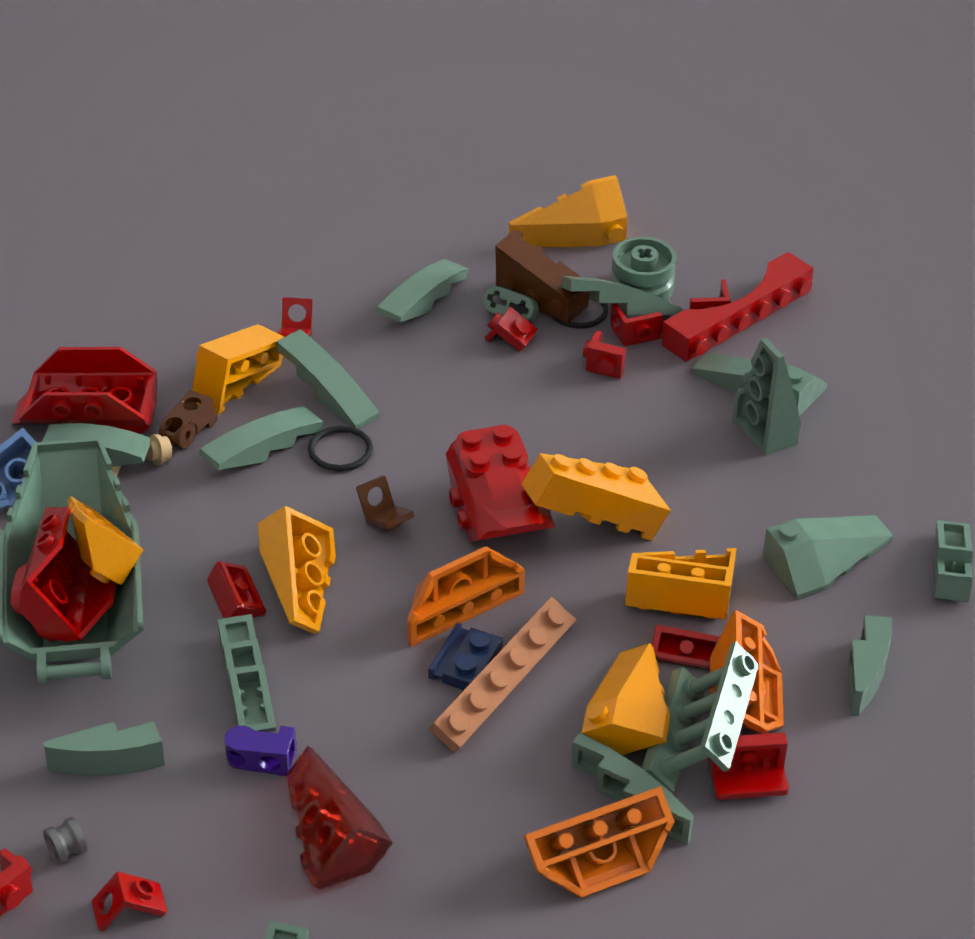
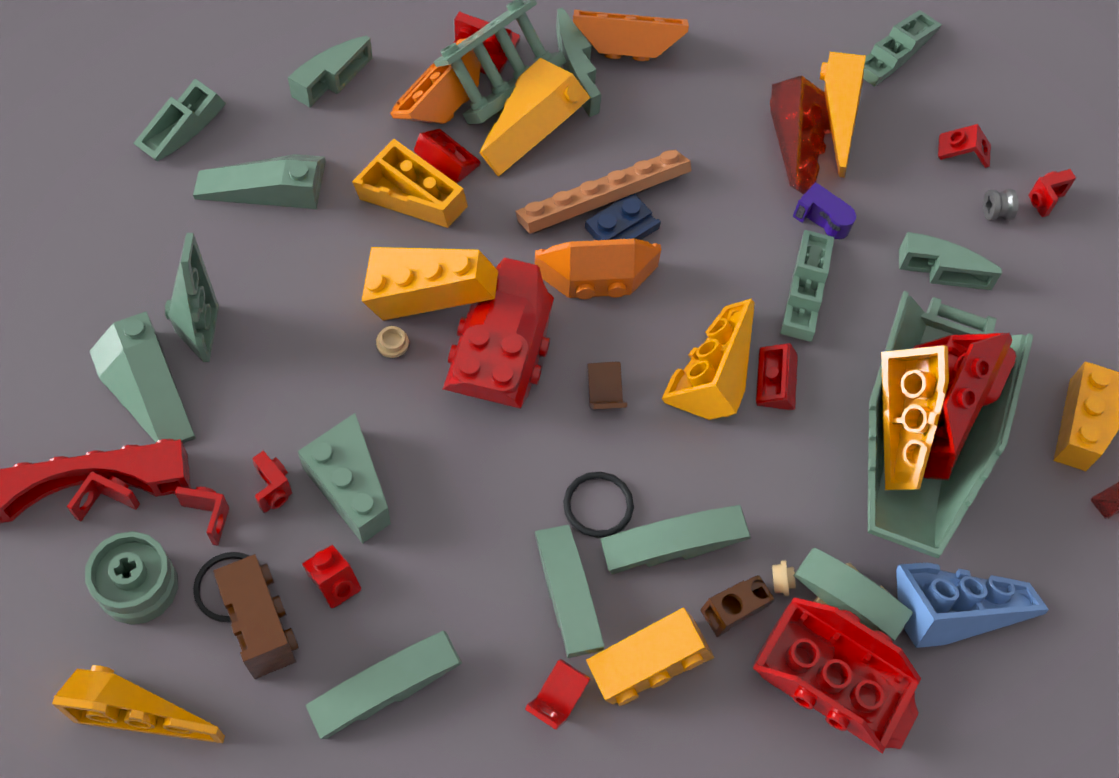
camera: 155 degrees left, 20 degrees up
(300, 855) = (842, 92): none -> light orange wedge
(512, 298) = (306, 610): sand green beam -> none
(545, 373) = (346, 477): none -> sand green wedge
(629, 299) = (196, 535): sand green slope -> none

